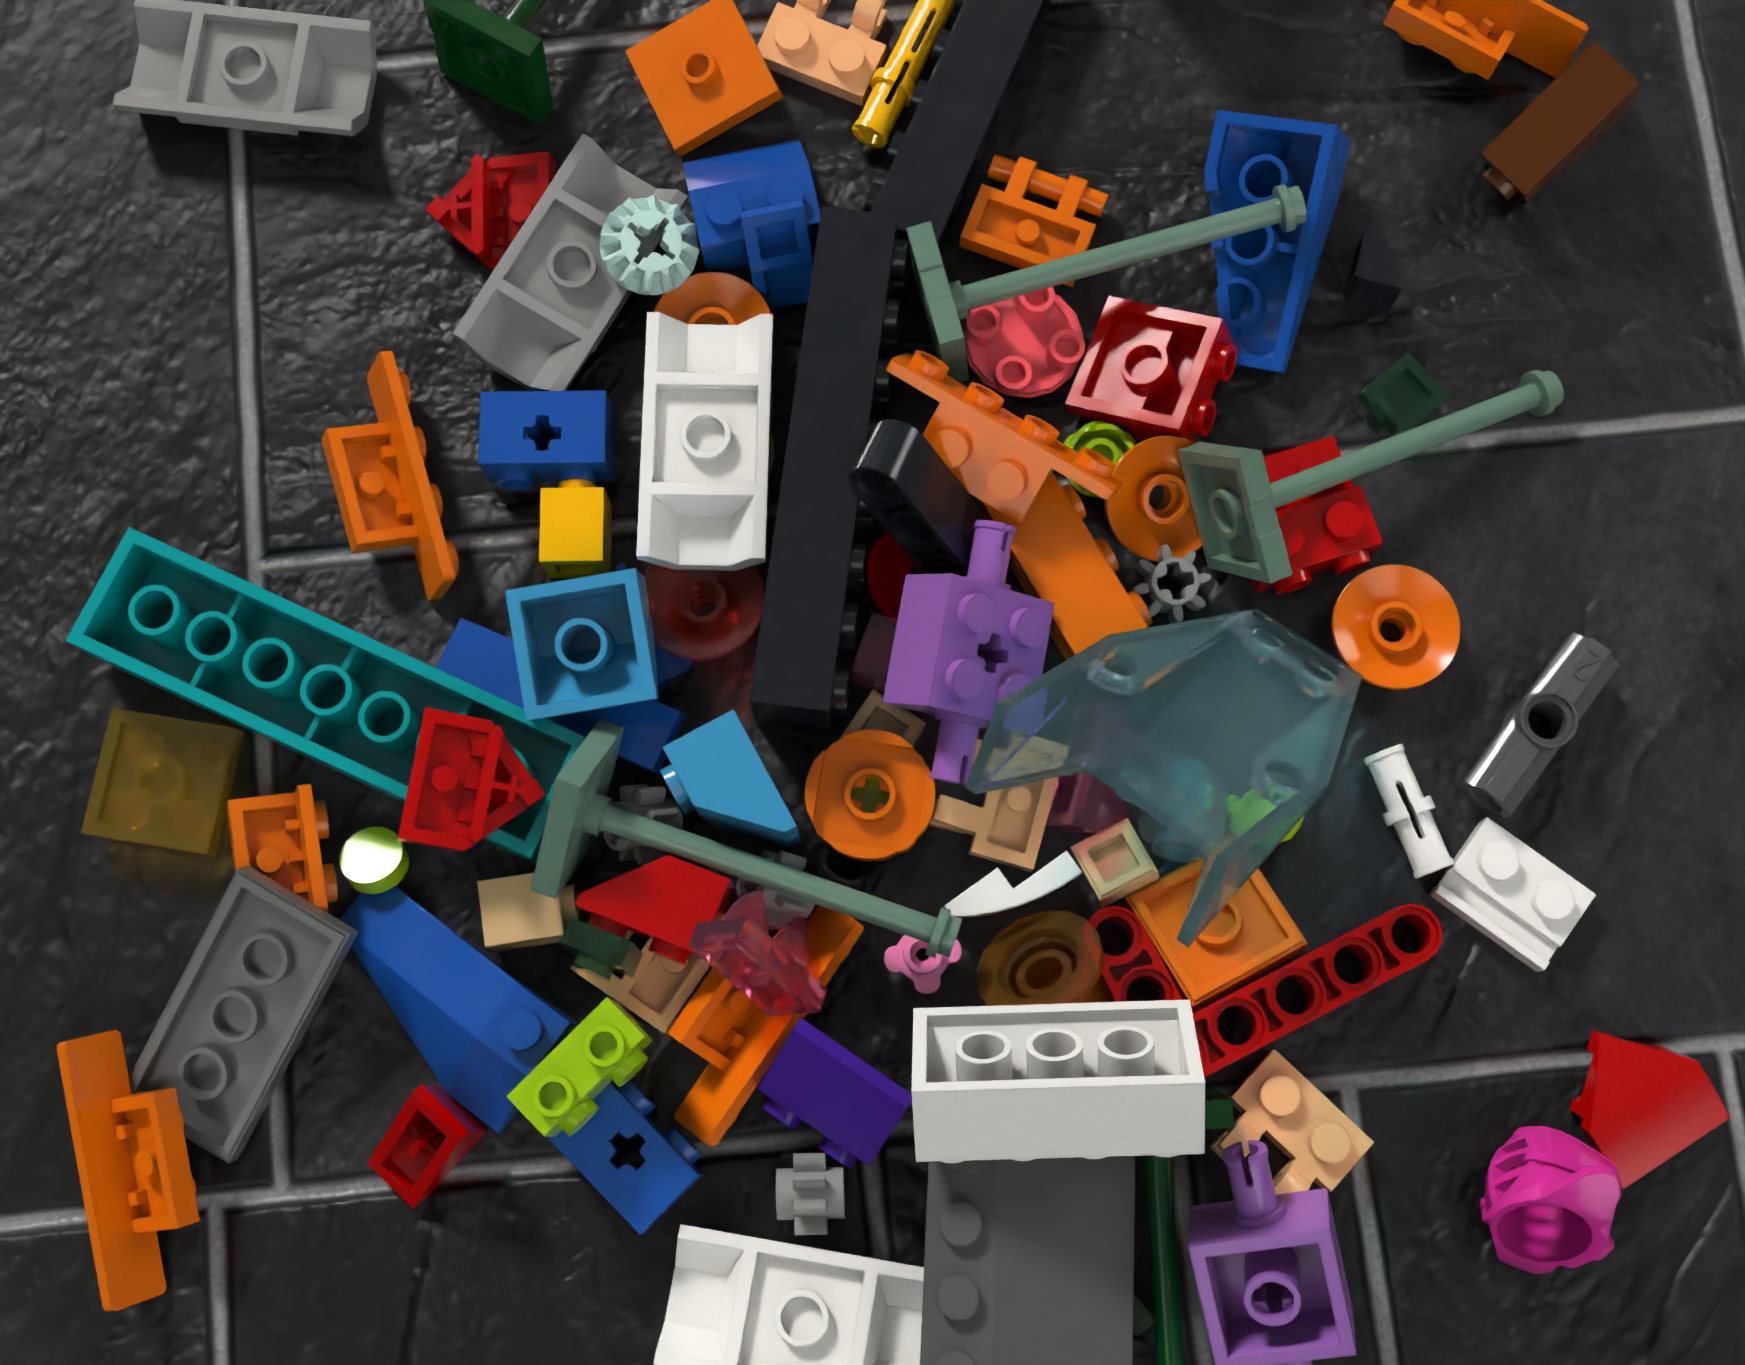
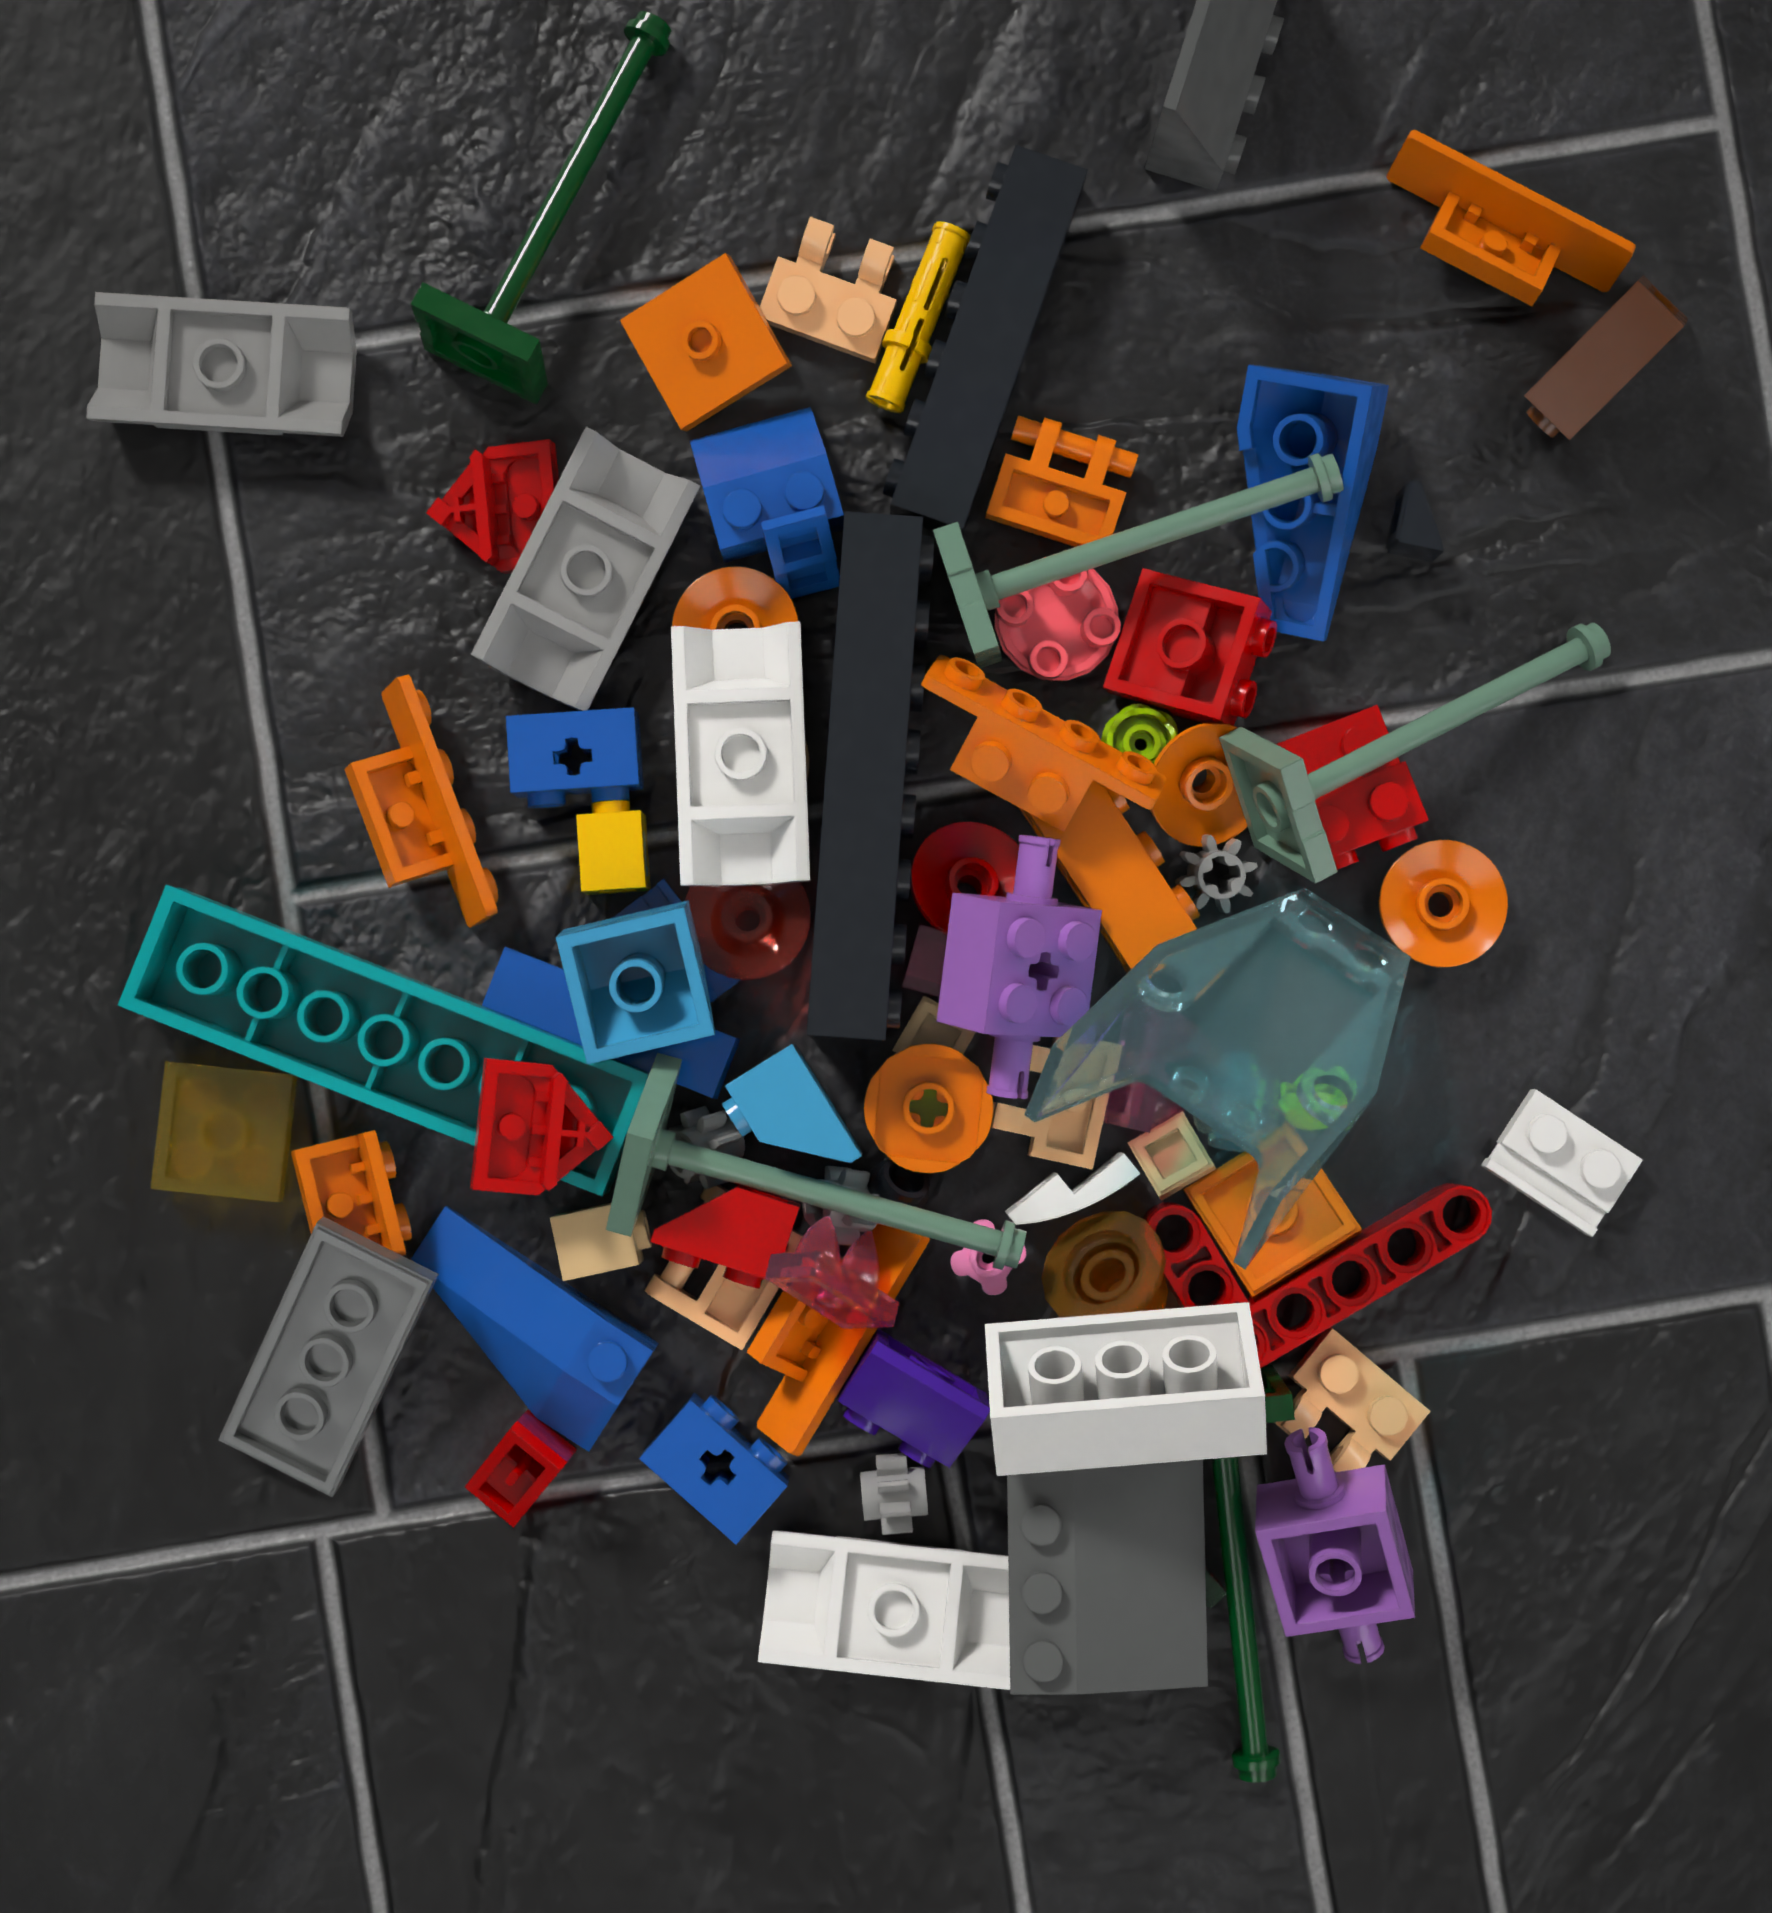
camera: 10 degrees left, 10 degrees up
(128, 1167) = (240, 1508): orange bracket -> none
(374, 860) = (442, 1196): tile -> none
(563, 1085) = (655, 1413): lime plate -> none
(600, 951) = (676, 1281): clear green plate -> none
(656, 272) = (637, 554): light aqua gear -> none
(916, 498) = (962, 817): black beam -> none
(1392, 768) = (1476, 1129): white pin -> none
(1403, 395) = (1448, 659): clear green plate -> none
(1549, 1201) = (1596, 1458): dark pink piece -> none
(1559, 694) = (1611, 962): dark grey piece -> none
(1644, 1104) = (1687, 1360): red slope -> none

